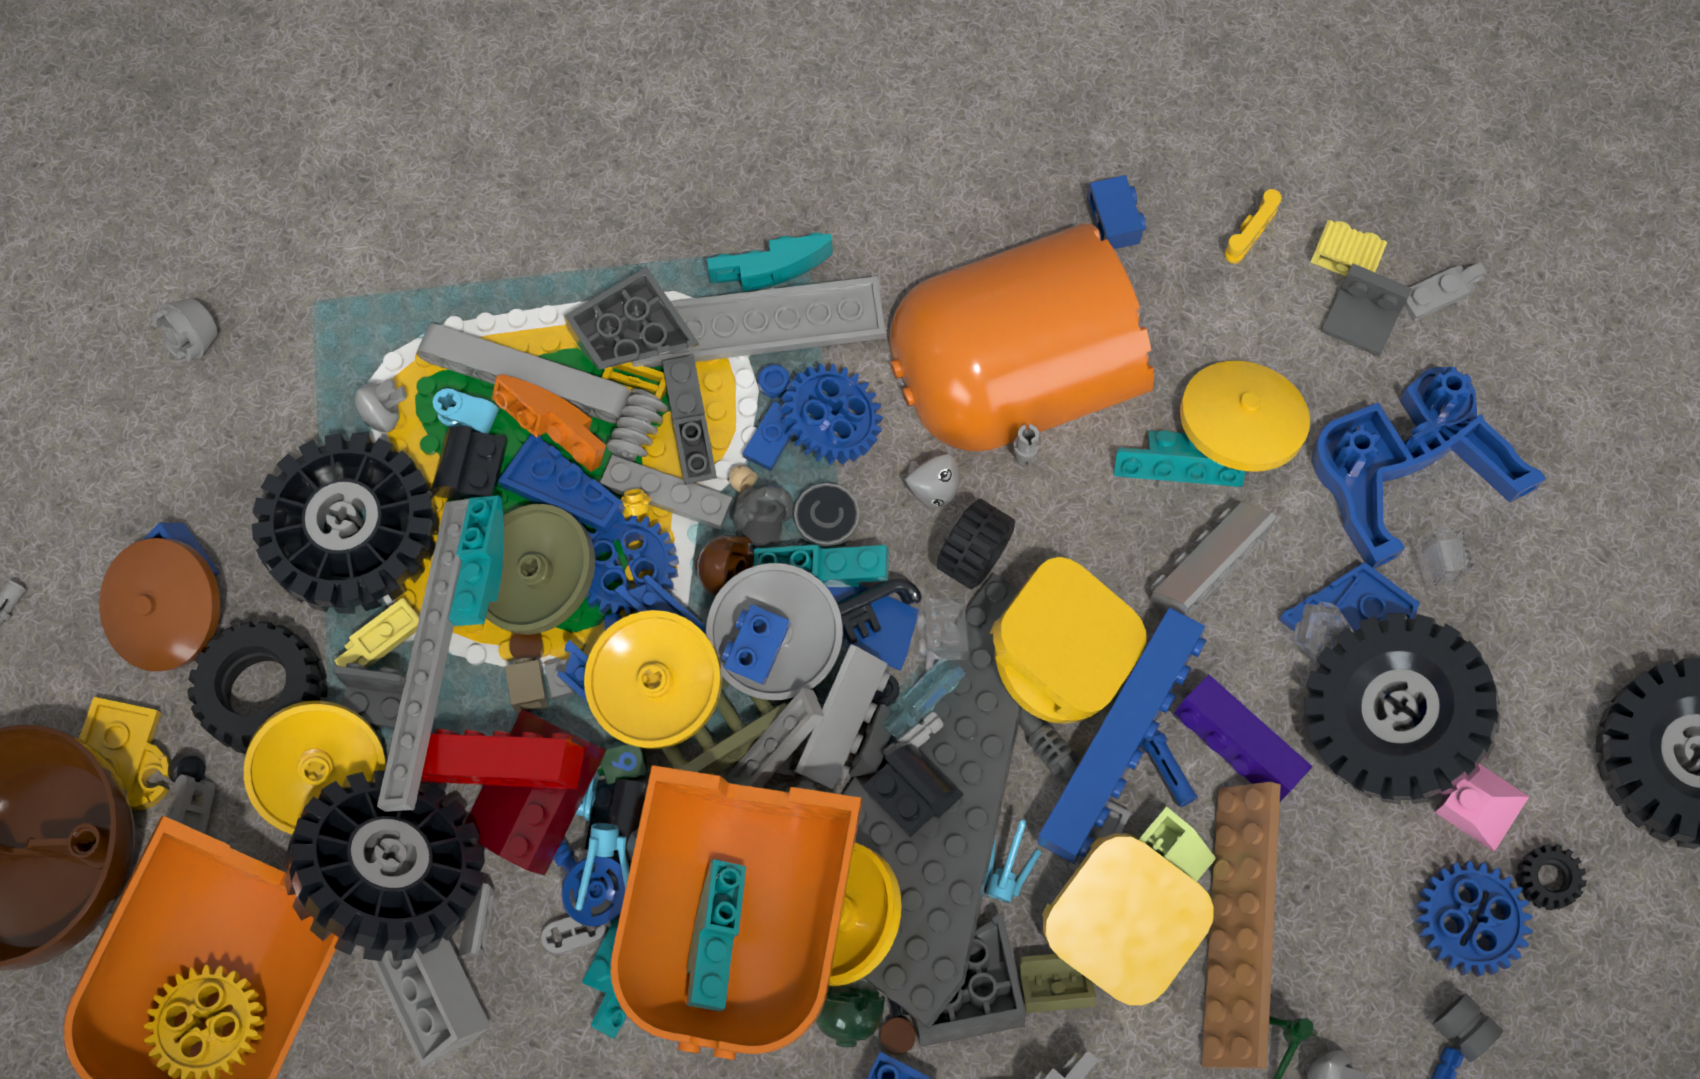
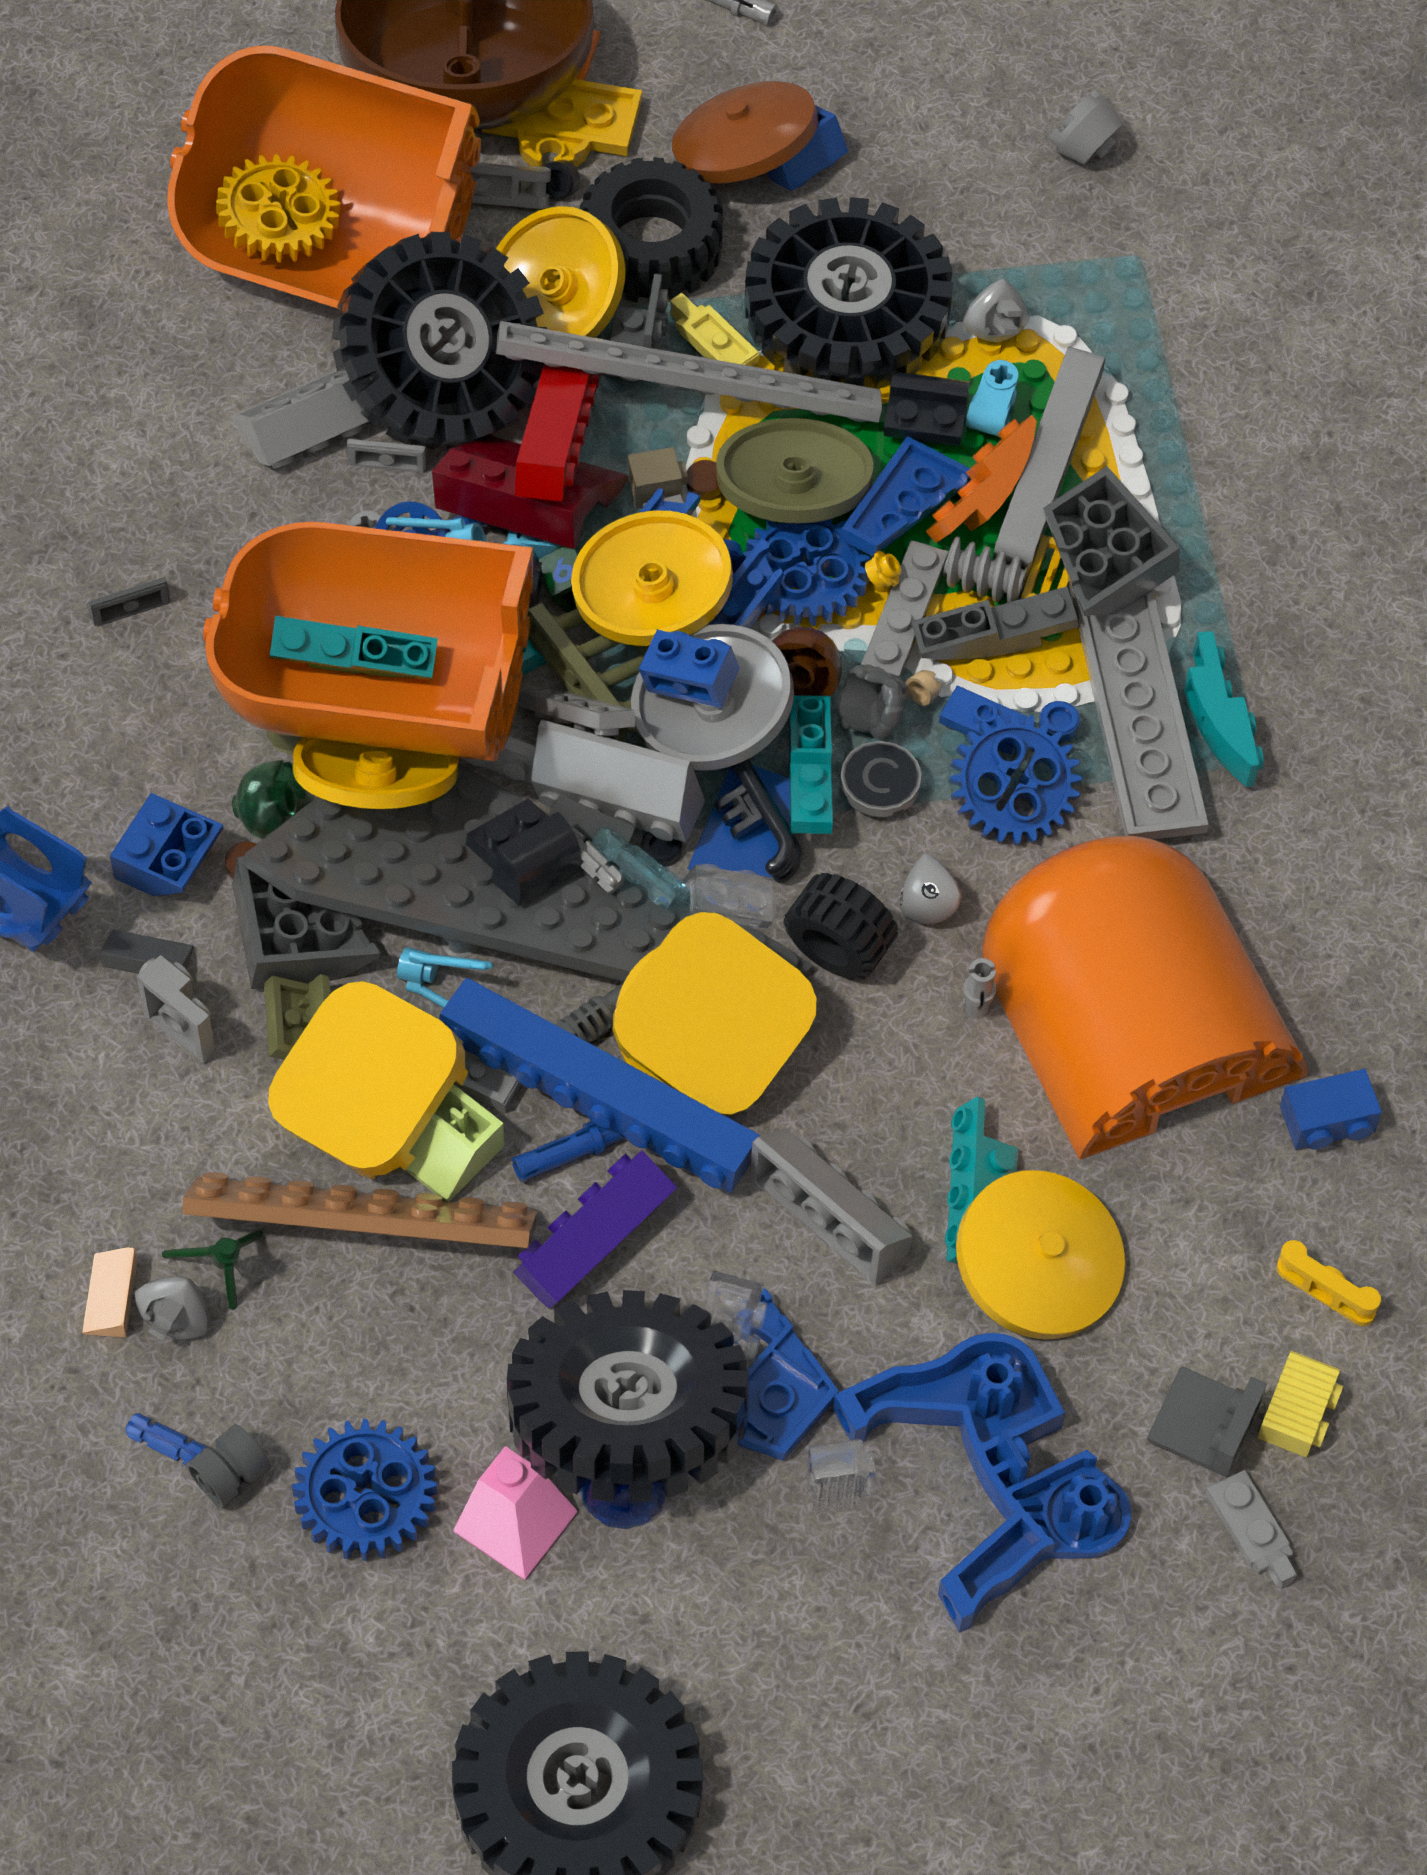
camera: 85 degrees right, 10 degrees down
(482, 561) = (813, 418): teal slope -> none
(1564, 863) = (409, 1564): black tyre -> none

